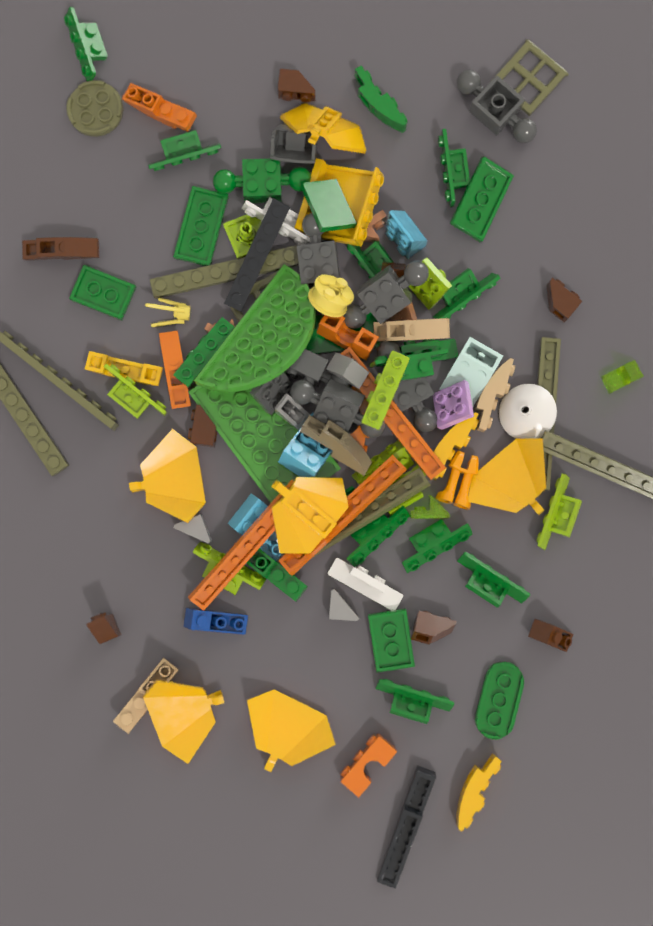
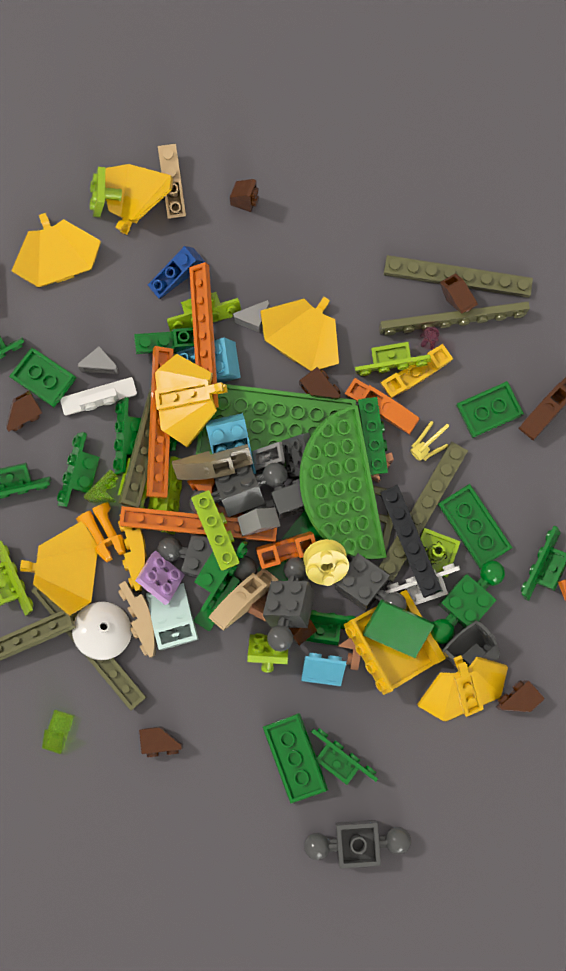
camera: 130 degrees right, 5 degrees down
(34, 391) = (458, 293): none -> reddish brown slope
(86, 382) = (430, 335): none -> clear pink piece
(207, 740) = (100, 192): none -> lime plate
(379, 105) = (440, 753): green slope -> none
(464, 289) = (238, 672): green bracket -> none
(530, 76) = (357, 898): olive window -> none

